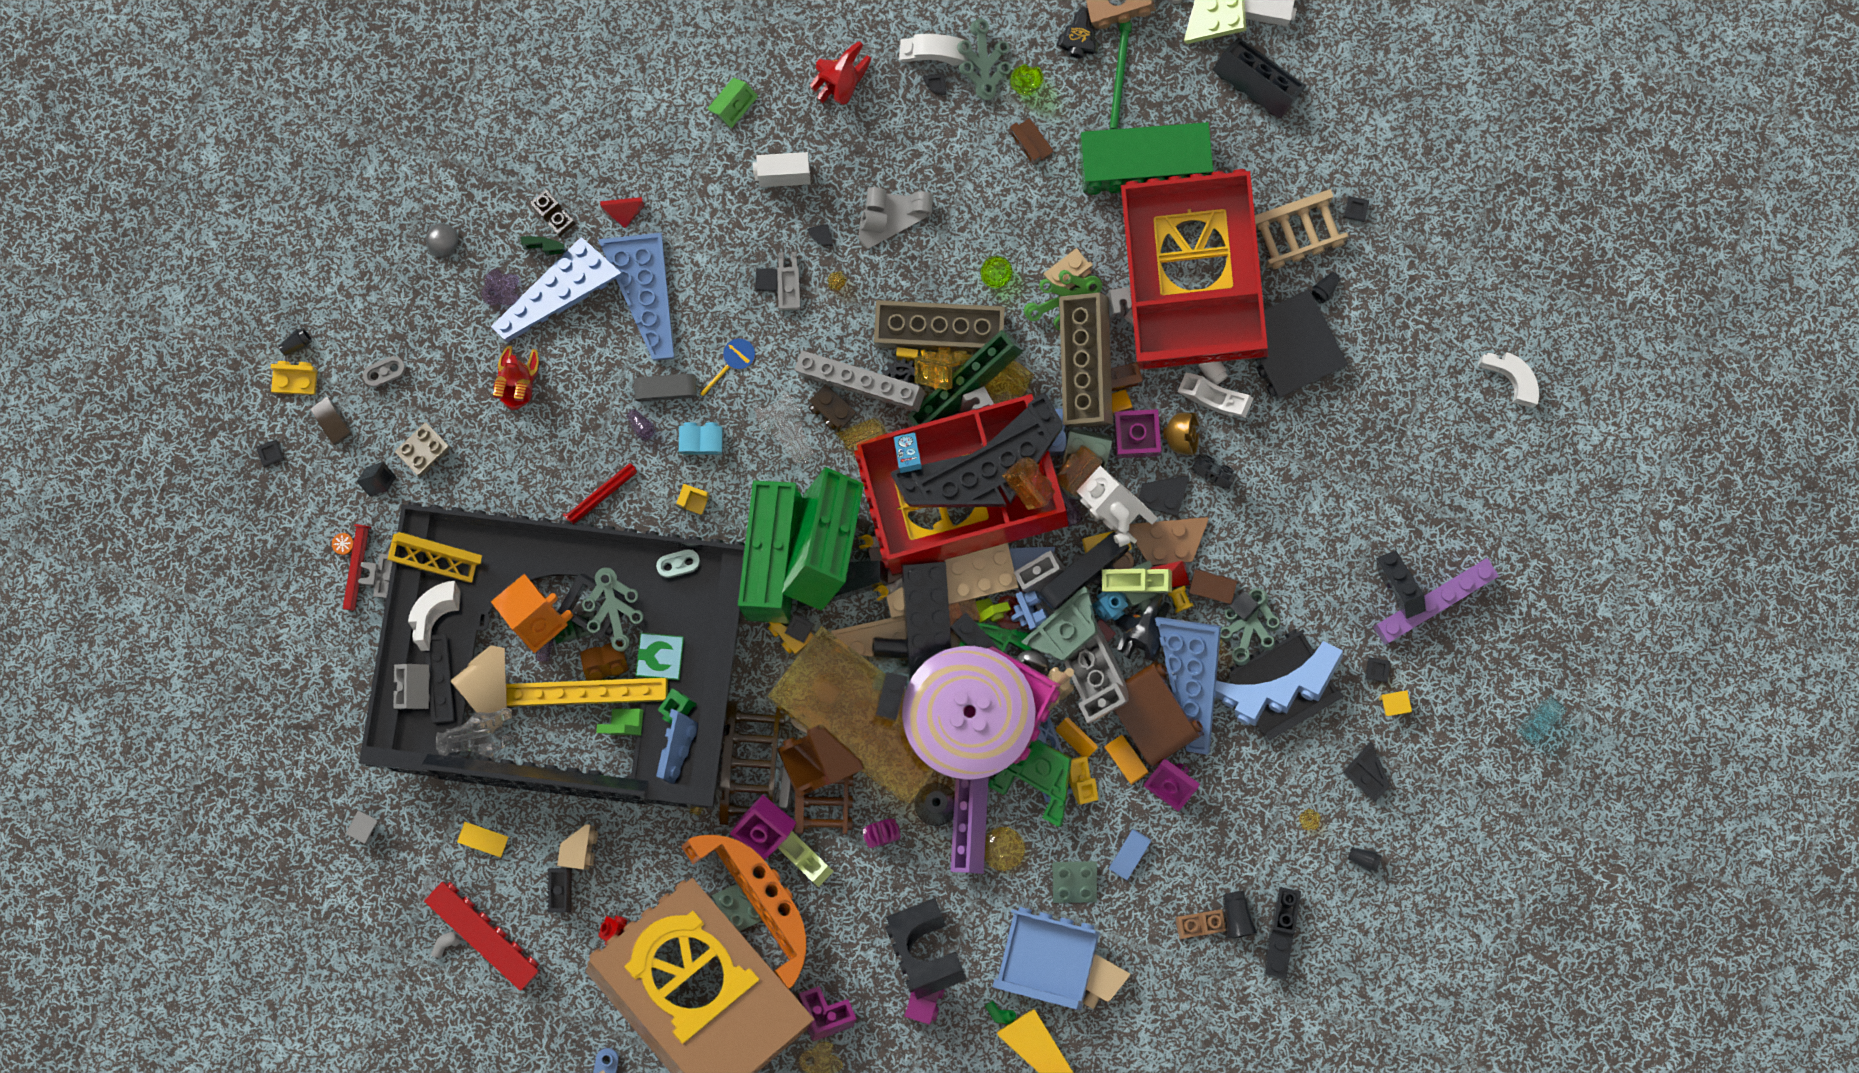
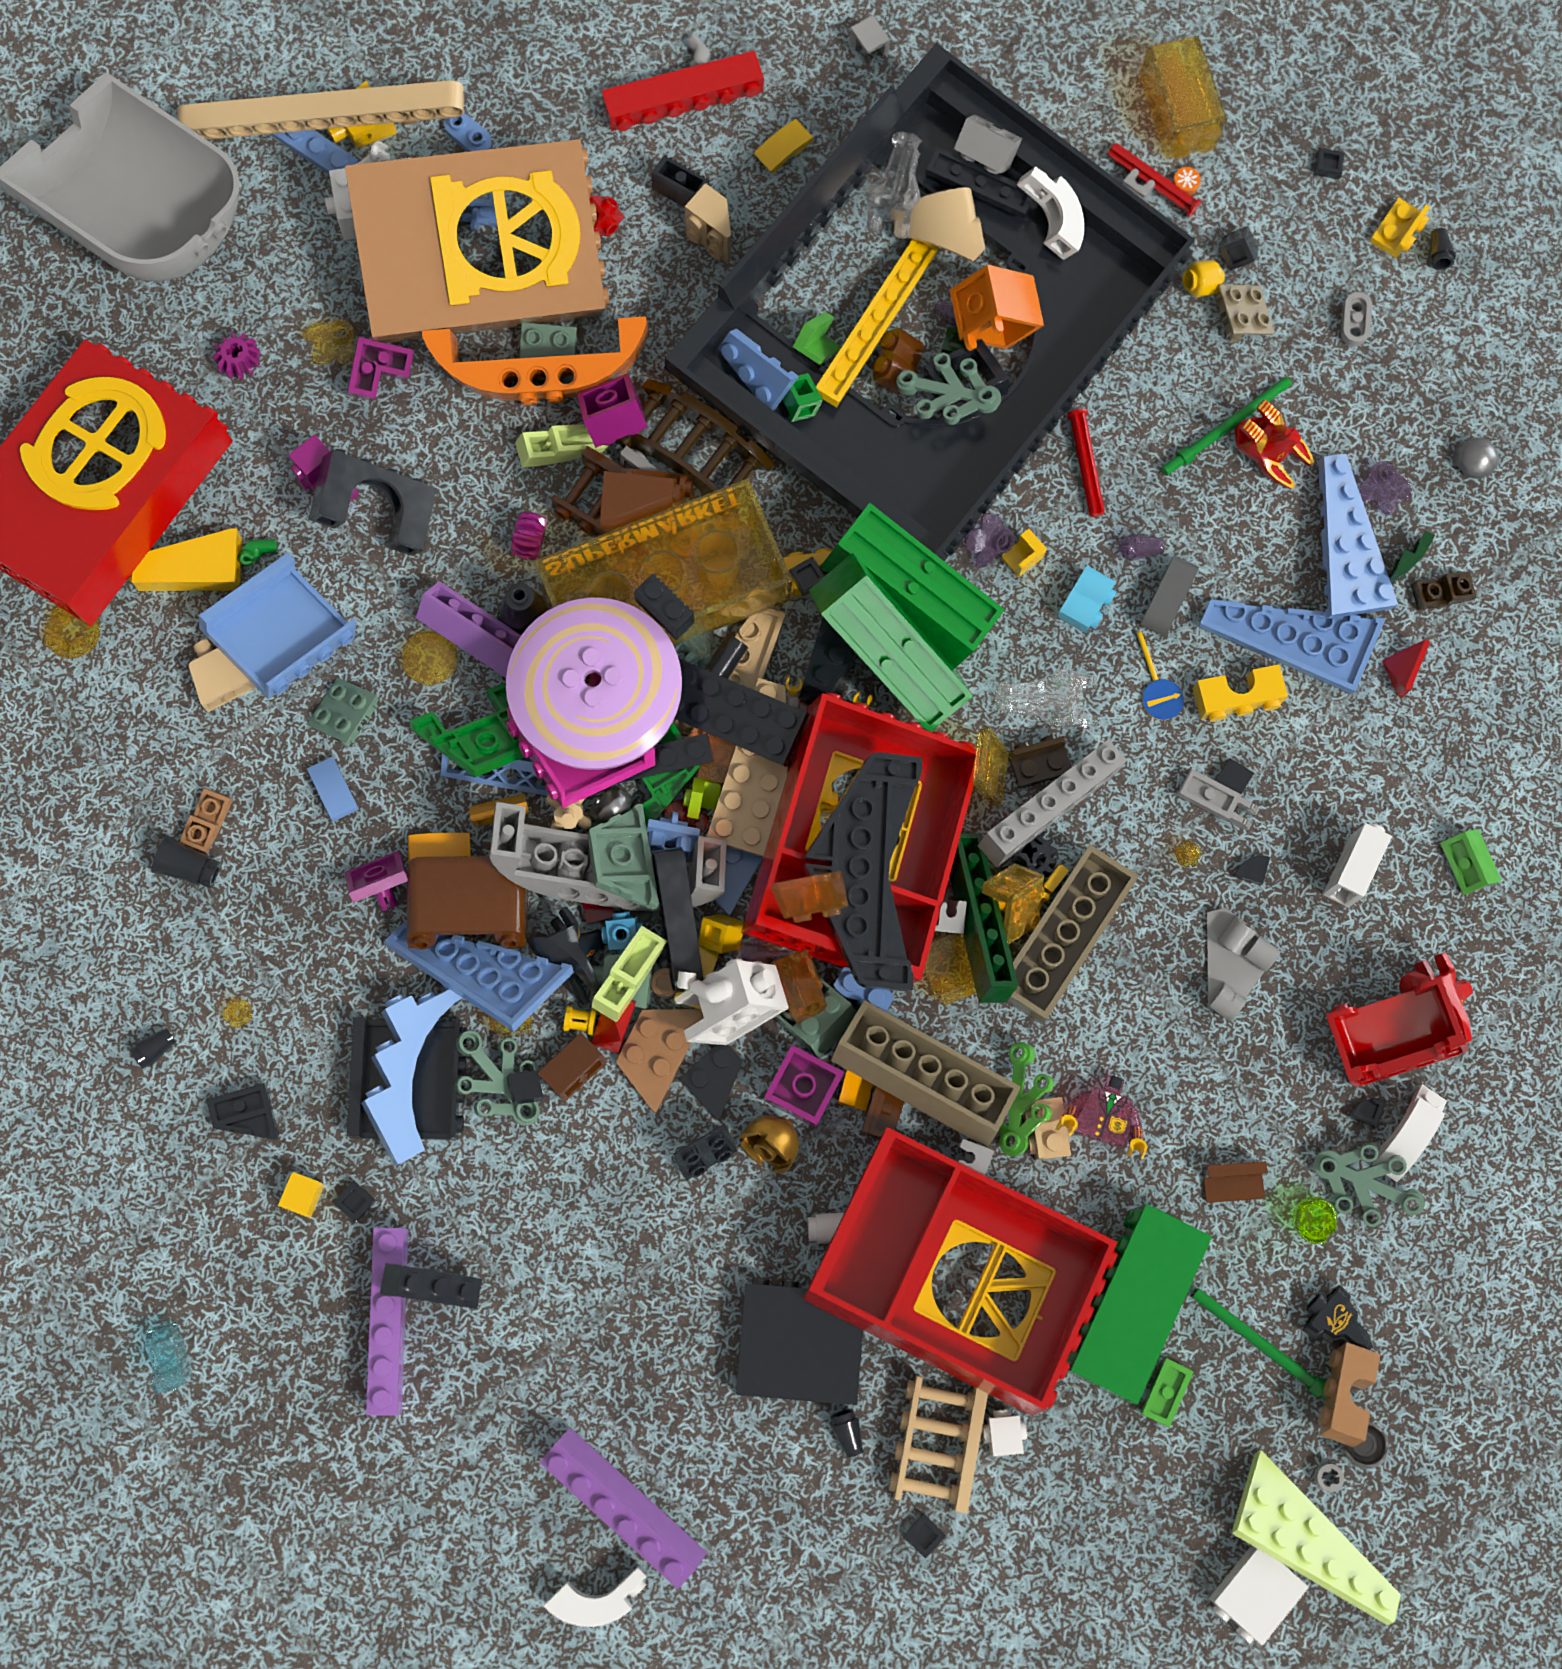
camera: 115 degrees right, 5 degrees down
(285, 578) = (1182, 97): none -> clear yellow brick
(331, 421) = (1330, 235): dark brown slope -> none
(415, 489) = (1203, 278): none -> yellow head
(437, 549) = (1124, 248): yellow fence -> none
(555, 431) = (1187, 454): none -> green bar
(660, 656) = (867, 415): tile -> none
(678, 564) = (958, 493): light aqua plate -> none
(694, 291) = (1217, 700): none -> yellow arch
(695, 525) = (989, 539): none -> clear purple plate
(881, 89) = (1397, 1033): none -> red windscreen
(907, 452) = (934, 791): dark azure tile -> none
(996, 271) = (1095, 1040): clear neon green hair -> none
(1040, 239) = (1105, 1117): none -> clear pink torso
(1070, 544) = (720, 933): none -> yellow panel
(1081, 783) = (448, 784): yellow slope -> none
(1184, 112) = (1166, 1392): none -> bright green plate
(1214, 397) = (794, 1207): white arch -> none
(1258, 78) = (1161, 1516): black slope -> none
(1269, 194) = (1004, 1433): none -> white brick
(1282, 933) = (133, 900): black slope -> none
(1453, 392) = (623, 1508): none -> medium lavender brick

